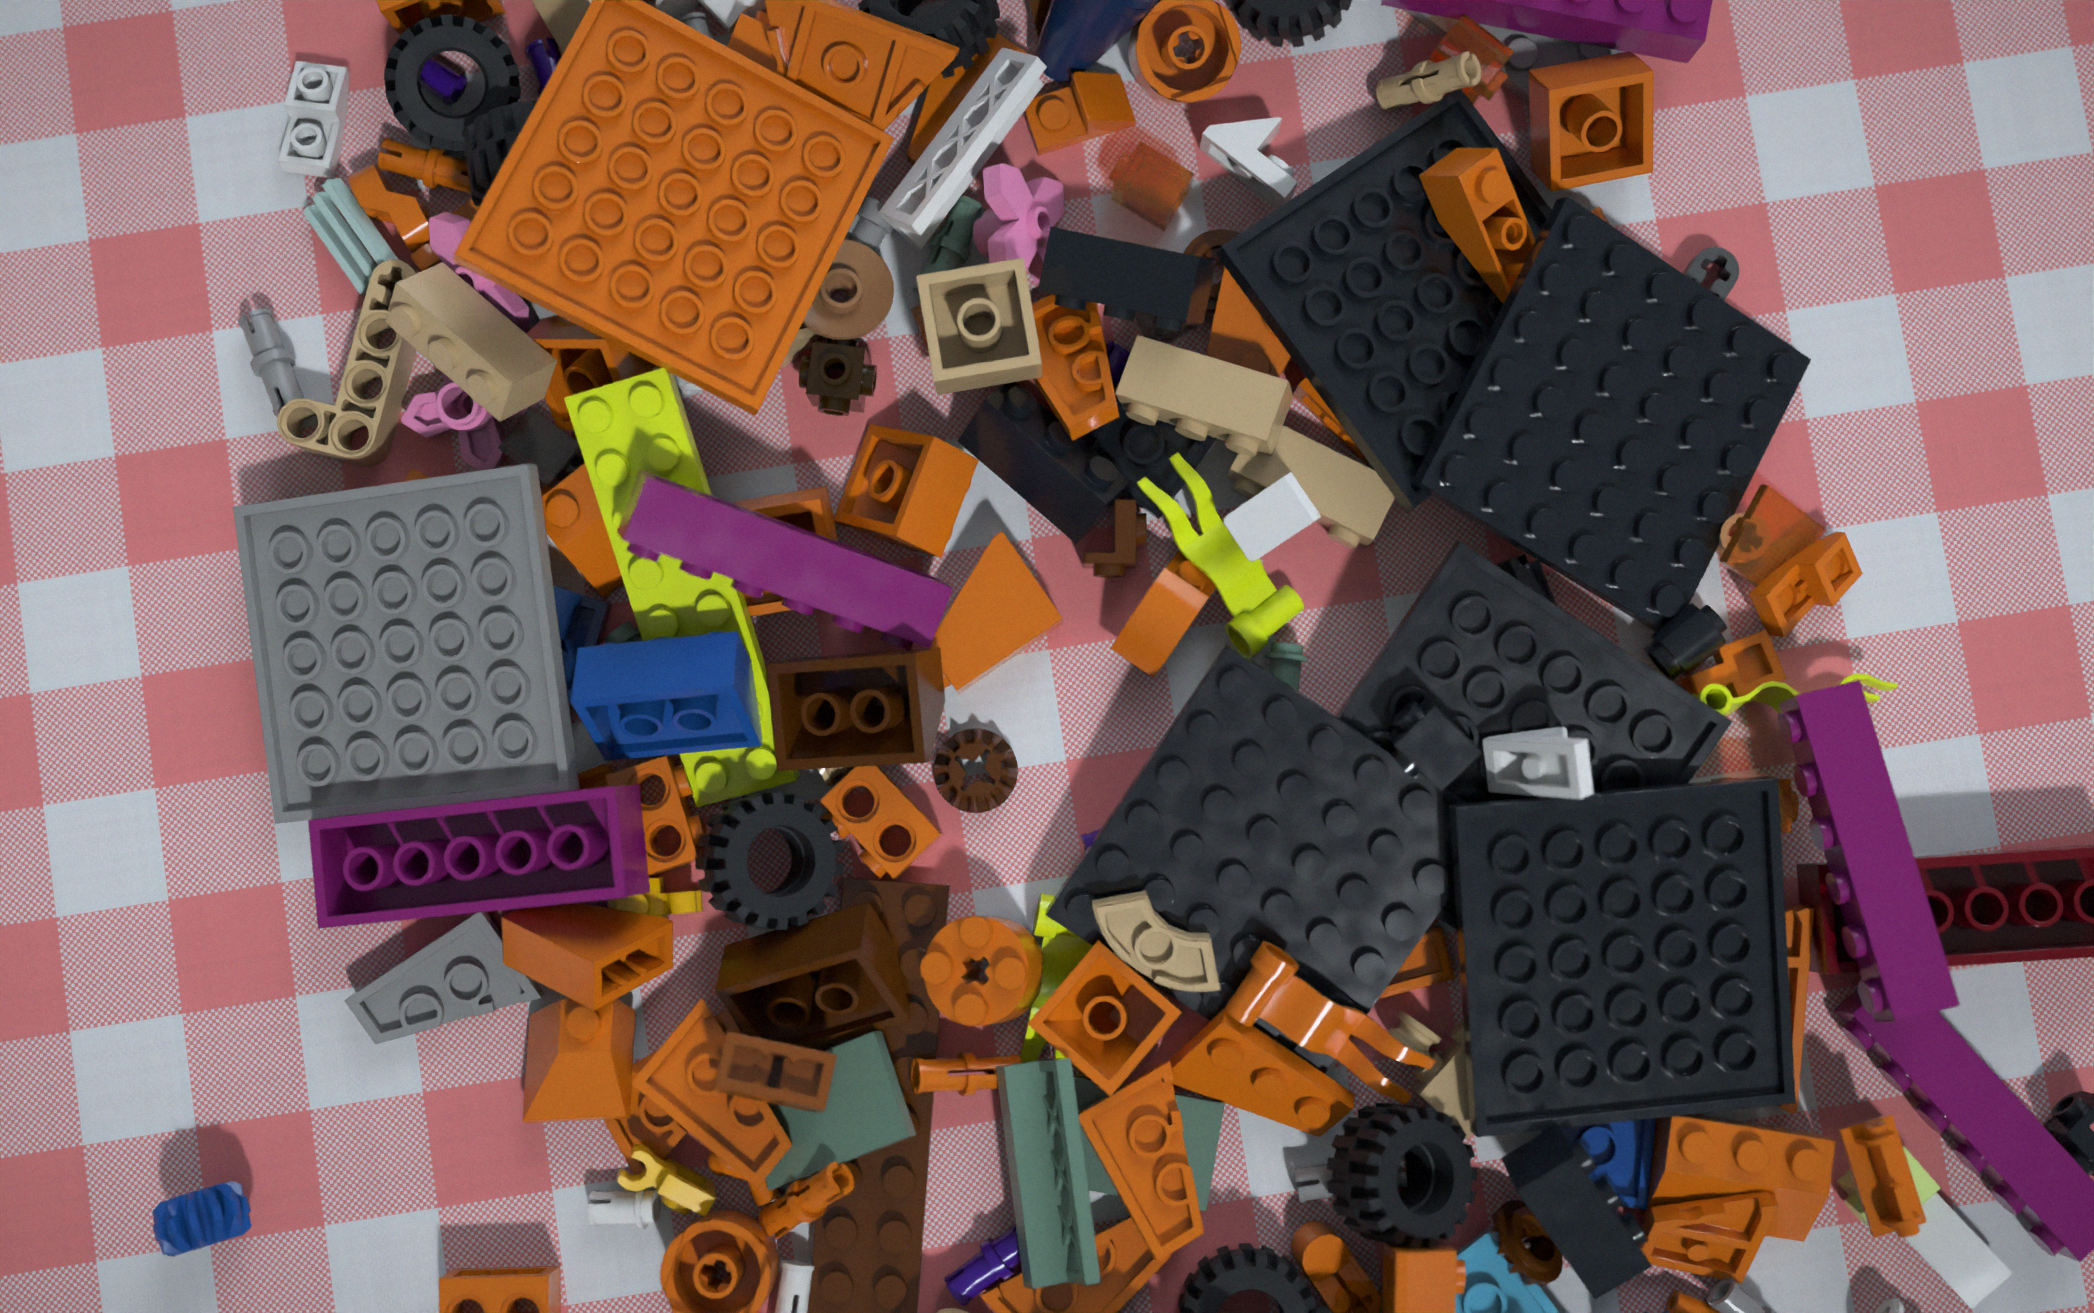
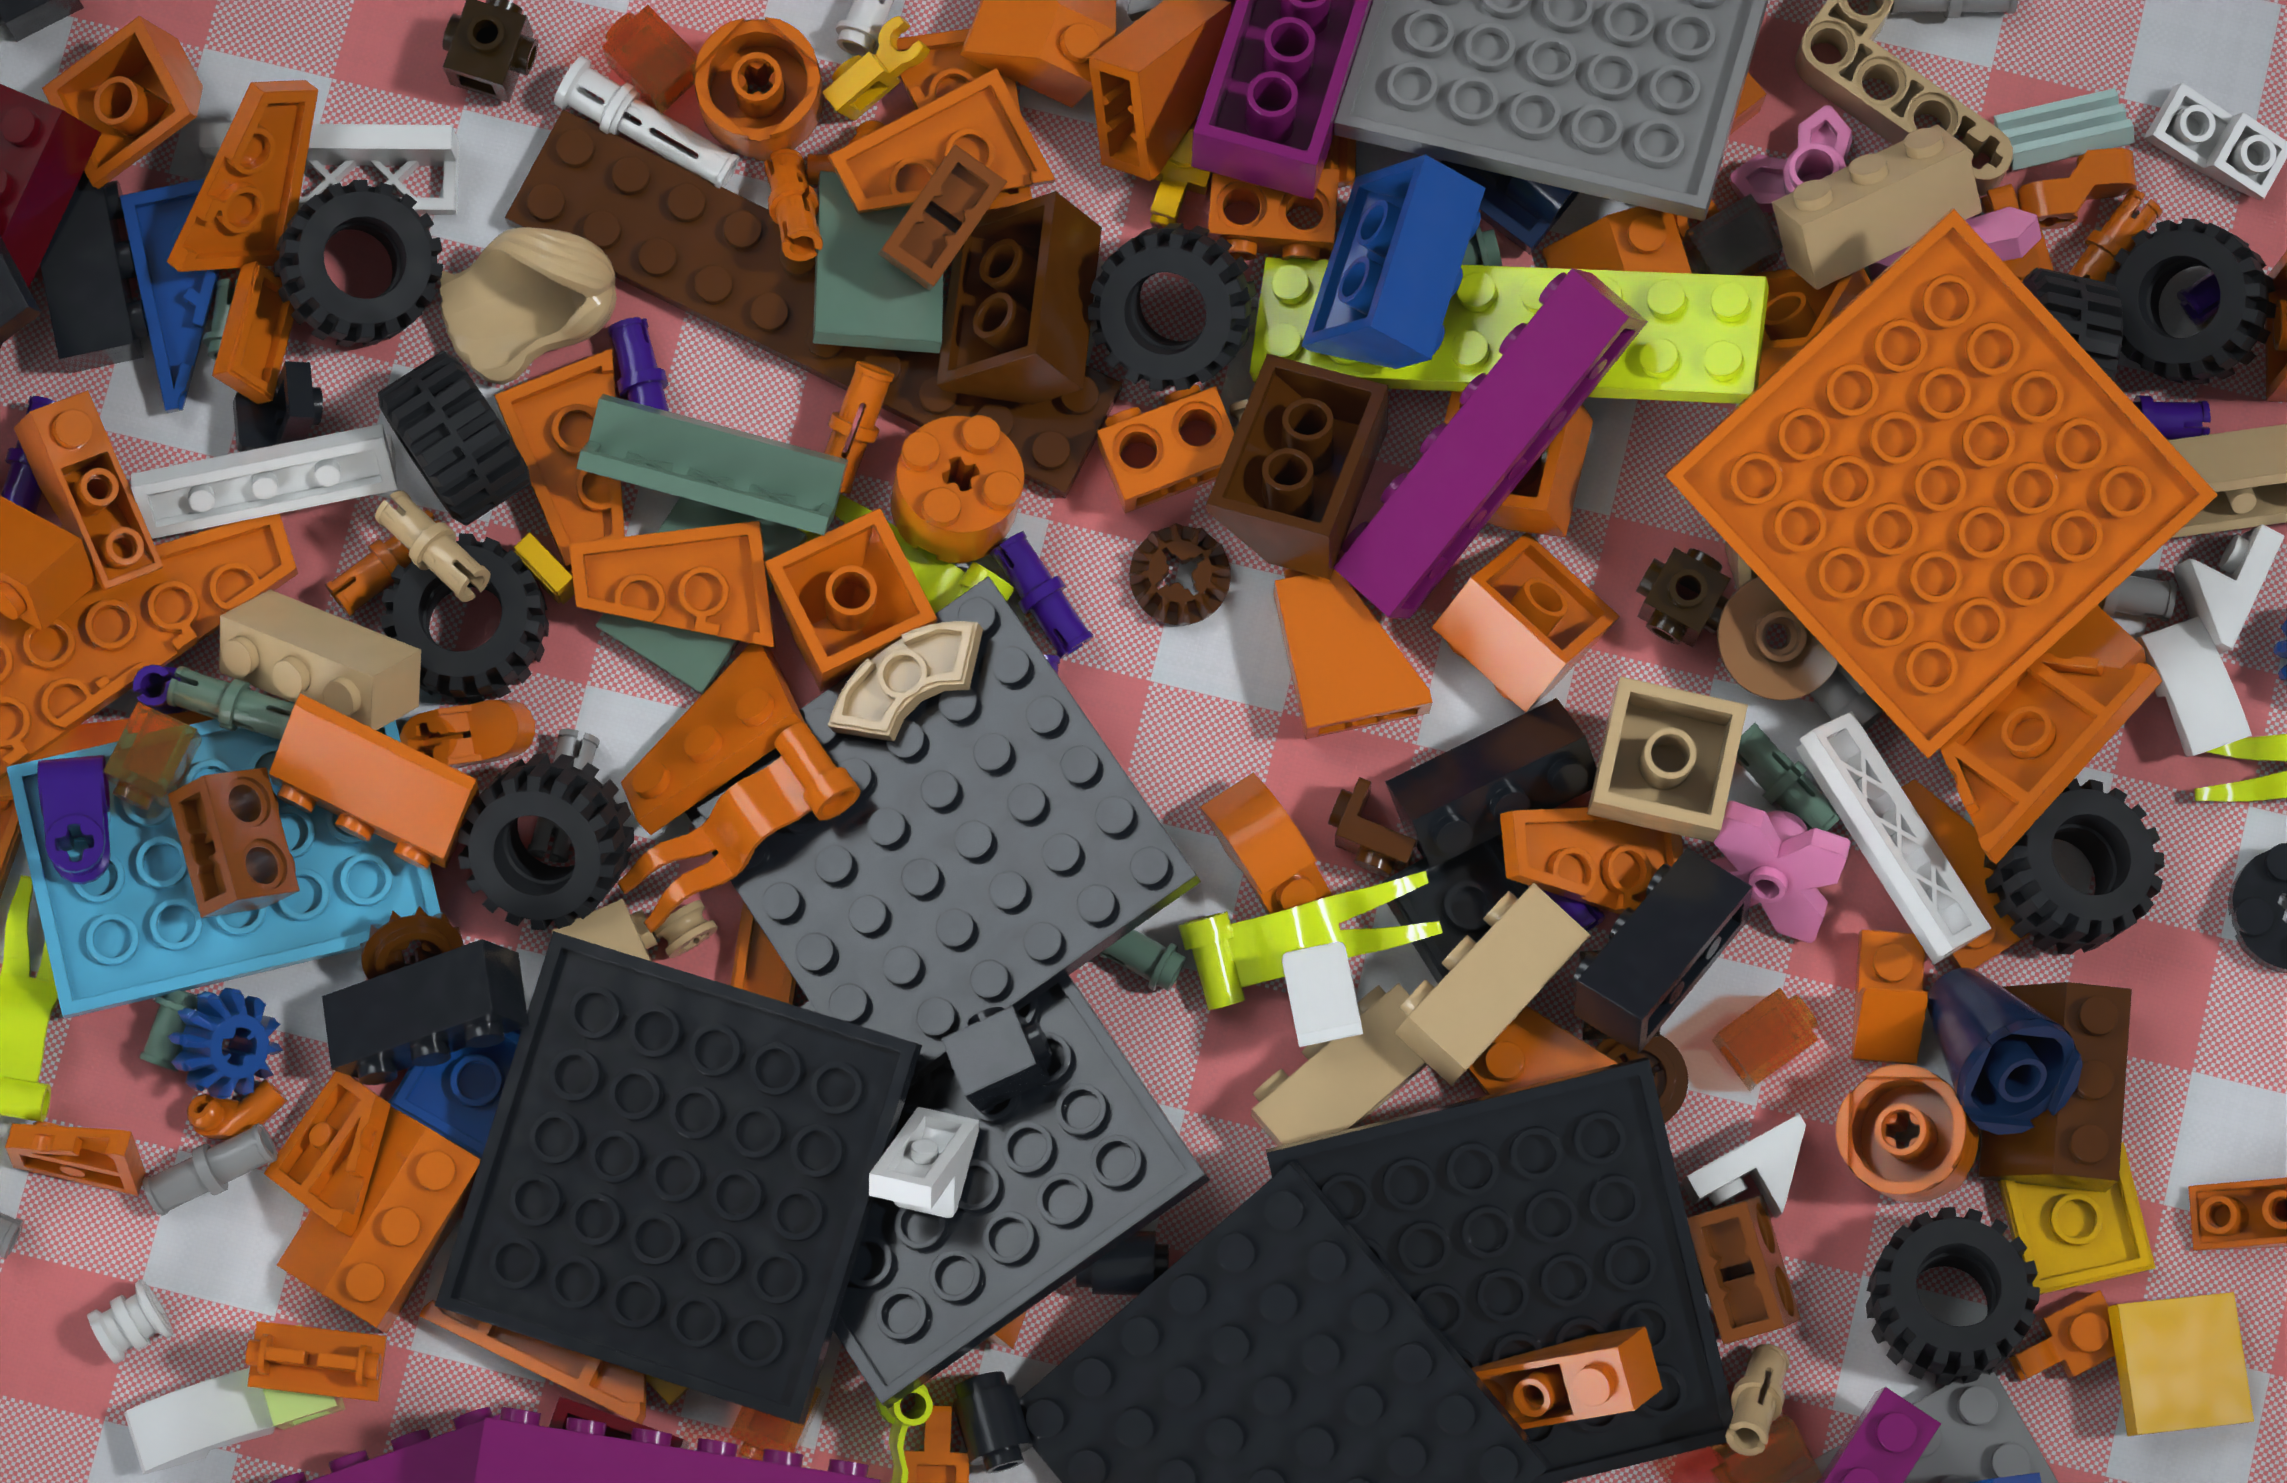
camera: 110 degrees right, 5 degrees down
(1037, 870) = (1041, 594): none -> dark purple pin
(1179, 1273) = (545, 569): none -> yellow tile
(1335, 130) = (1743, 1269): none -> dark orange brick

